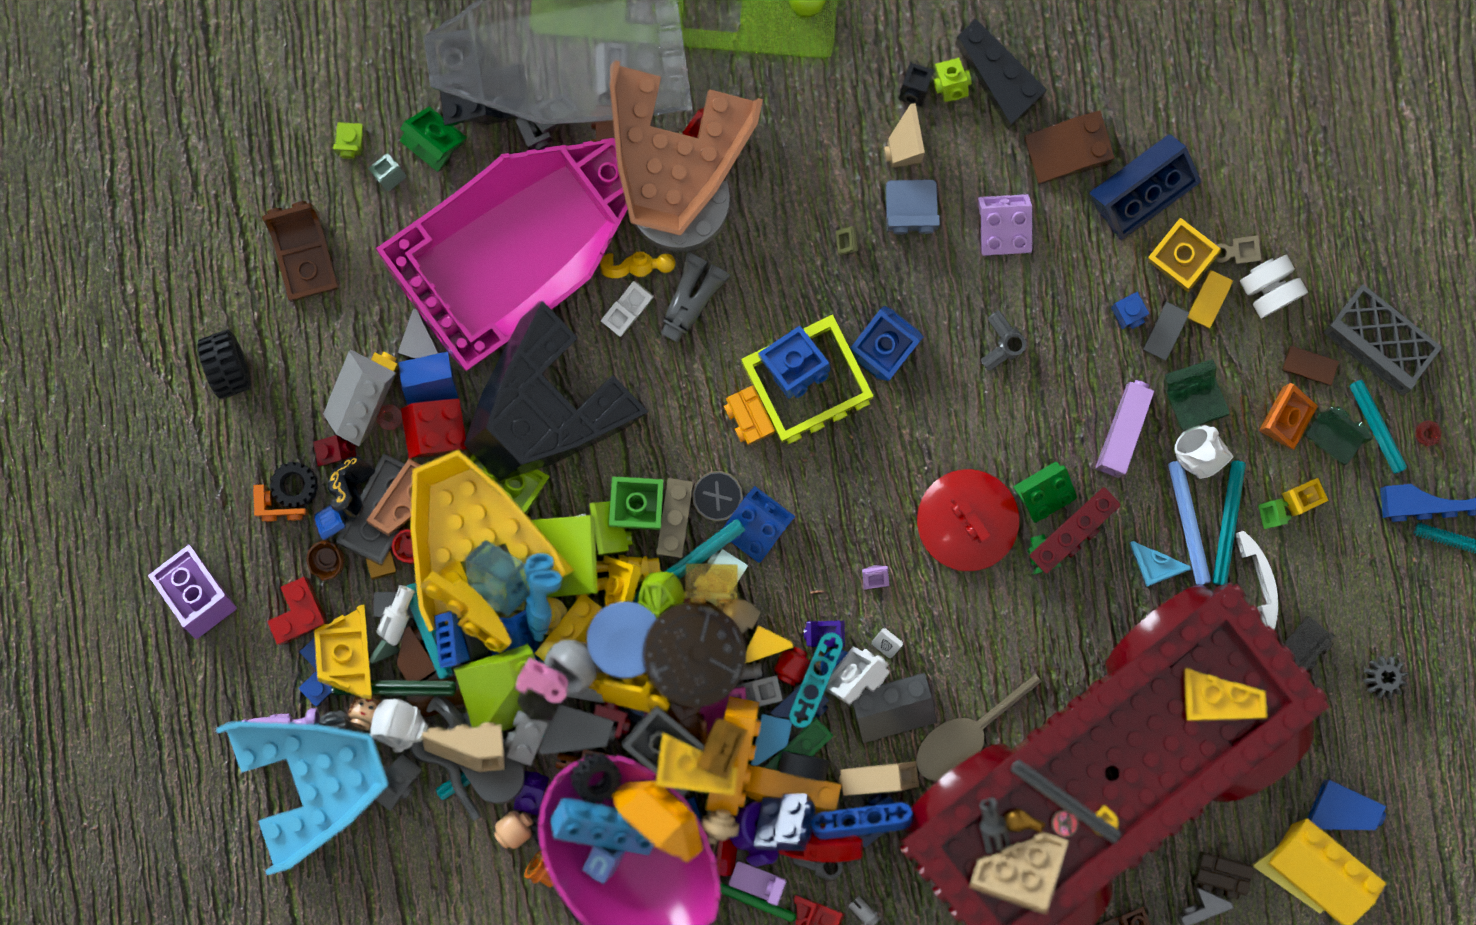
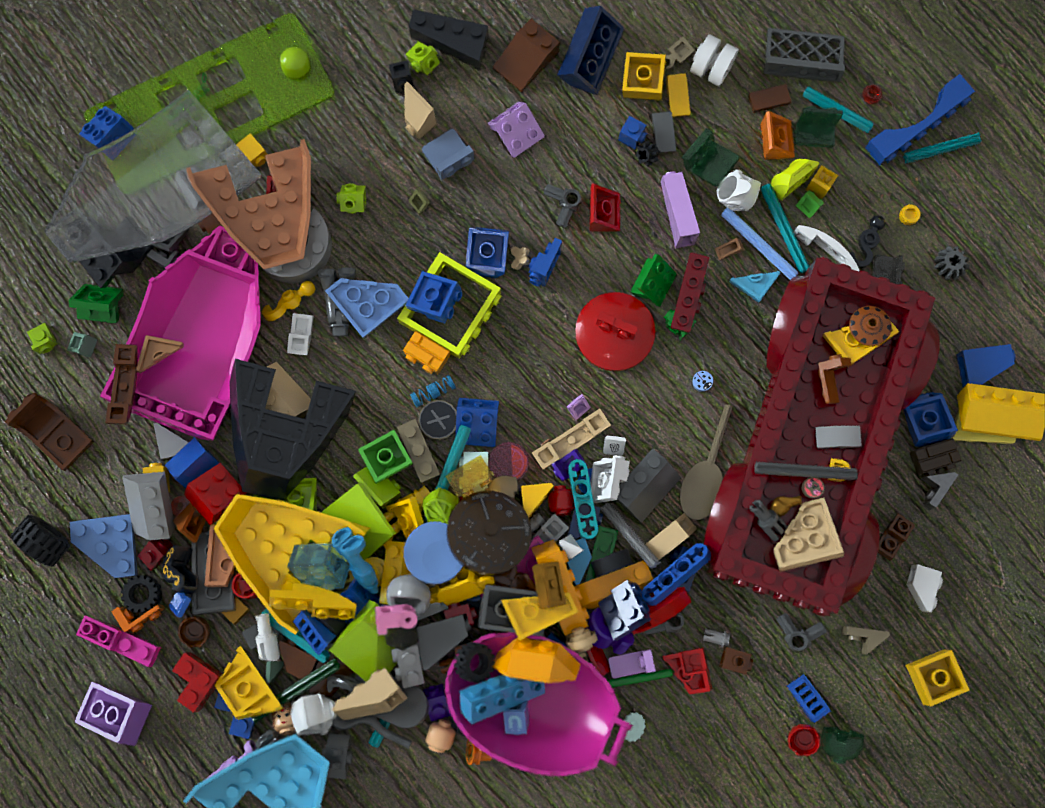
camera: 30 degrees left, 5 degrees down
(242, 520) = (117, 640): none -> dark pink slope
(290, 408) = (108, 543): none -> medium blue plate
(389, 442) = (190, 522): none -> dark orange slope
(407, 253) = (123, 384): none -> reddish brown slope
(463, 234) = (156, 350): none -> medium nougat tile
(573, 369) = (286, 395): none -> tan slope
(699, 70) = (252, 150): none -> yellow brick
(719, 322) = (366, 302): none -> medium blue plate
(731, 461) = (433, 390): none -> dark azure piece
(765, 588) = (509, 460): none -> clear pink tile
(770, 721) = (570, 546): none -> white slope
(775, 193) = (352, 198): none -> lime brick
(841, 752) = (629, 535): none -> light grey axle
(845, 607) = (571, 439): none -> tan slope
(918, 372) = (521, 257): none -> tan piece
(932, 401) = (543, 265): none -> blue plate
(1027, 633) = (702, 381): none -> light blue tile
(1043, 378) = (604, 209): none -> red slope
(1127, 787) = (838, 437): none -> light grey slope
(1131, 344) = (647, 153): none -> black gear
(1153, 507) = (730, 248): none -> medium nougat piece
(1157, 719) = (826, 374): none -> dark orange bracket
(1228, 698) = (868, 334): none -> dark orange dish
(1243, 830) = (929, 420): none -> blue slope
(1273, 472) = (793, 177): none -> neon yellow slope
(1310, 595) = (869, 240): none -> black piece
(1377, 594) = (909, 214): none -> yellow tile

